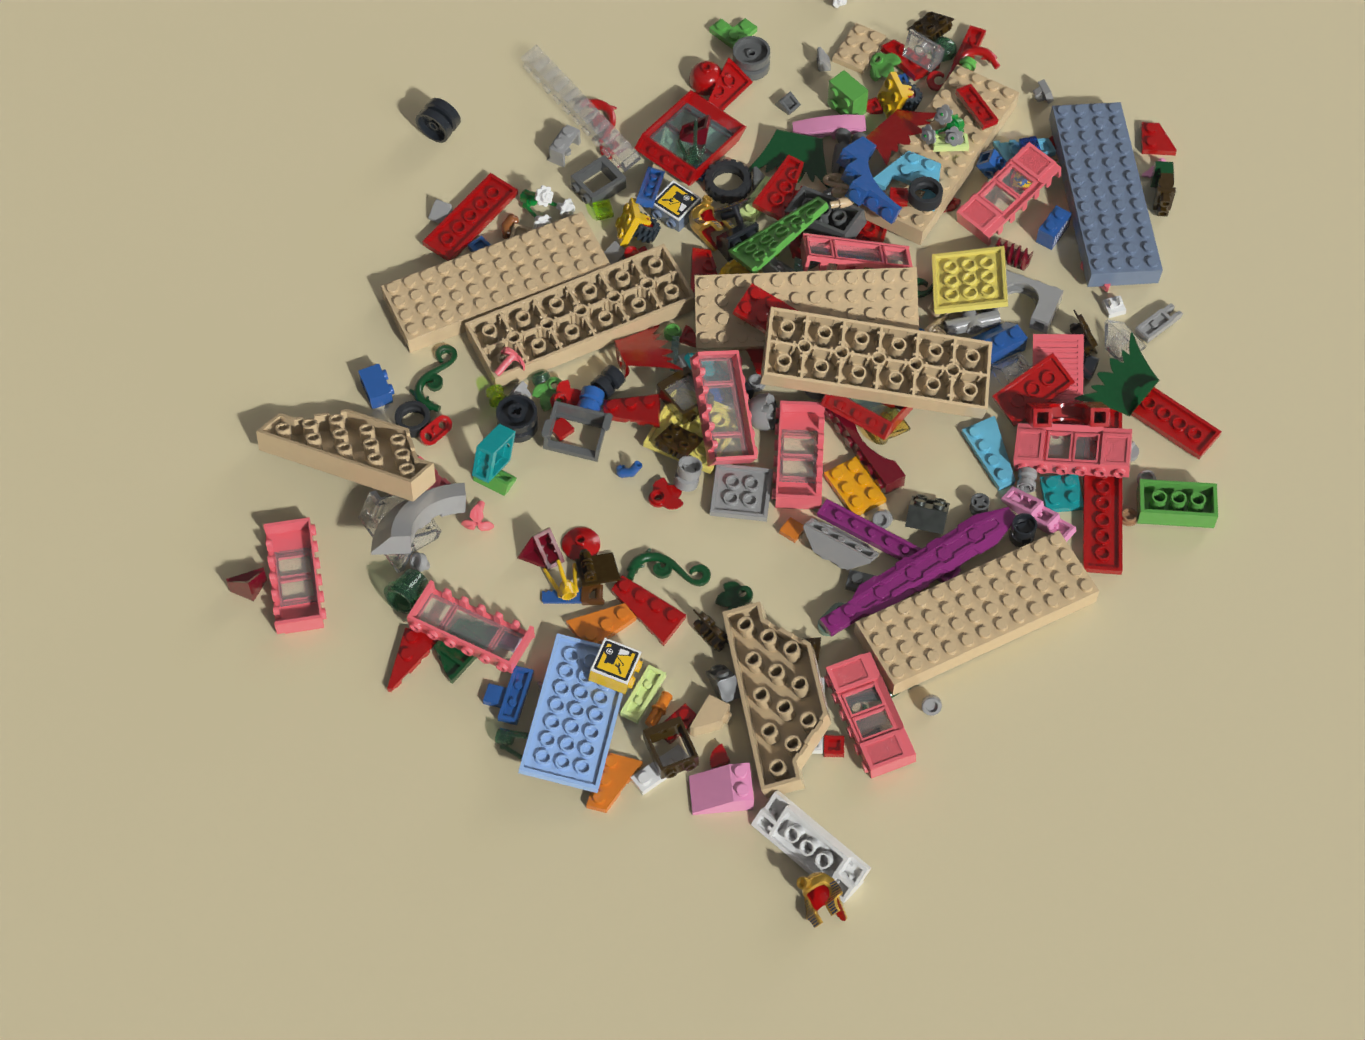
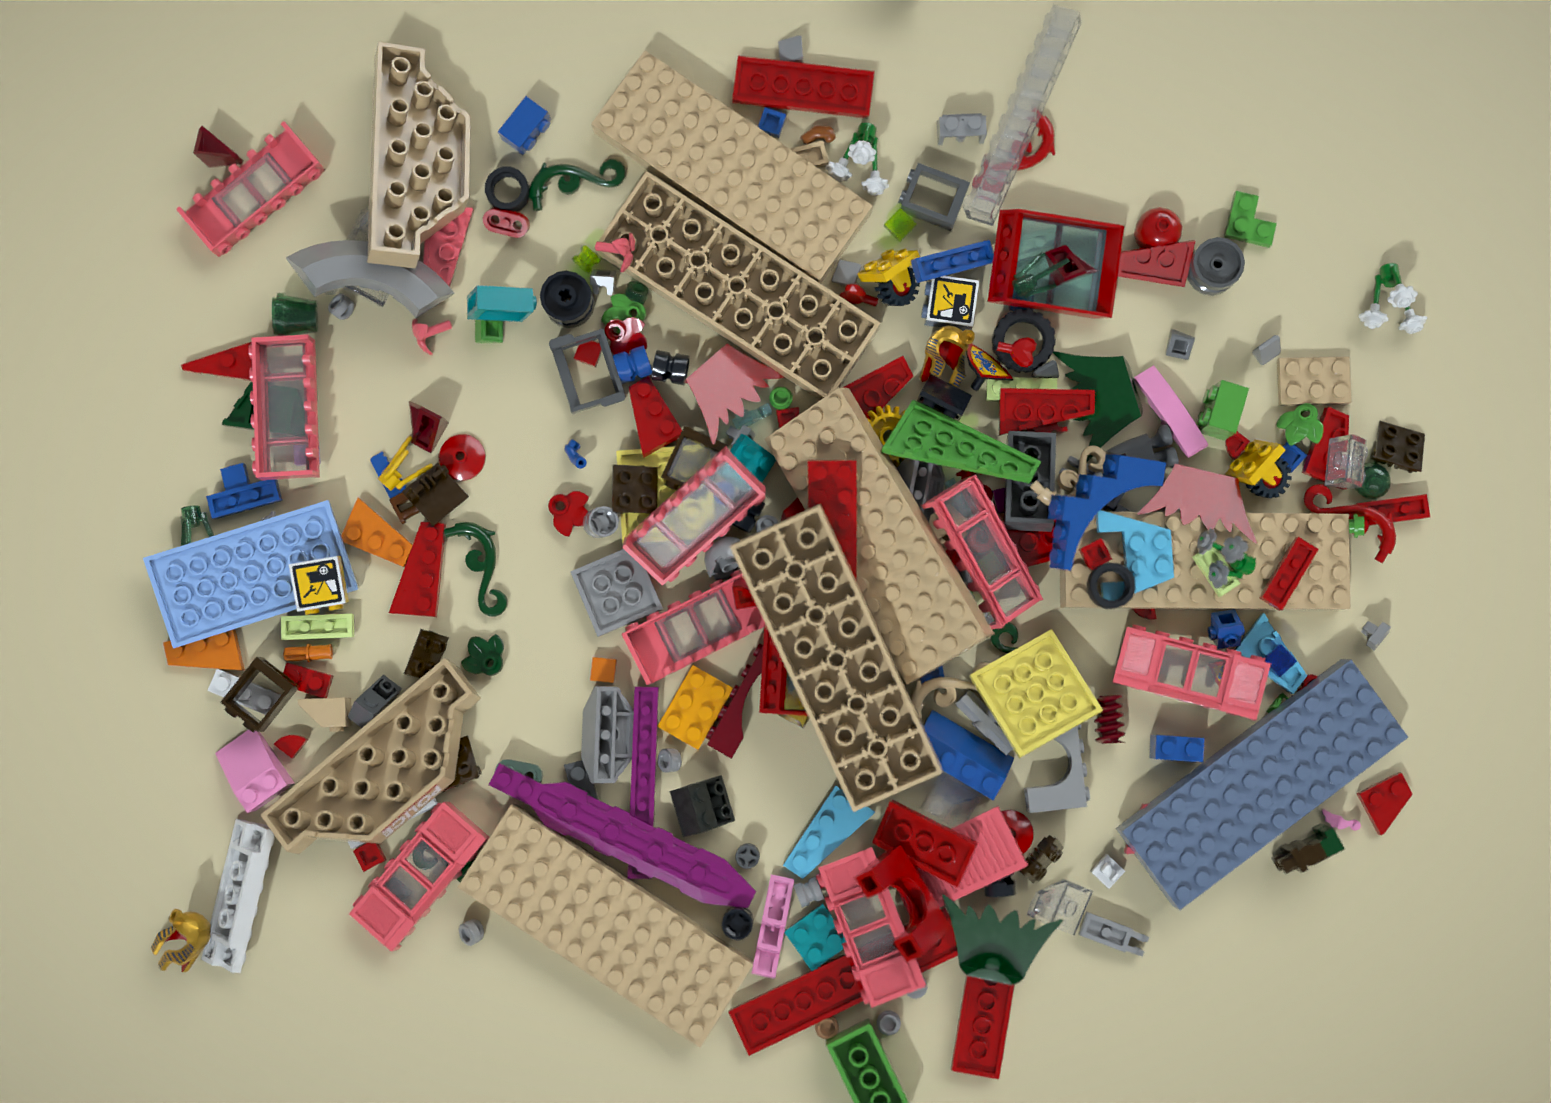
camera: 65 degrees right, 25 degrees up
(734, 181) = (1020, 350): none -> red rock
(797, 418) = (743, 598): none -> red tile

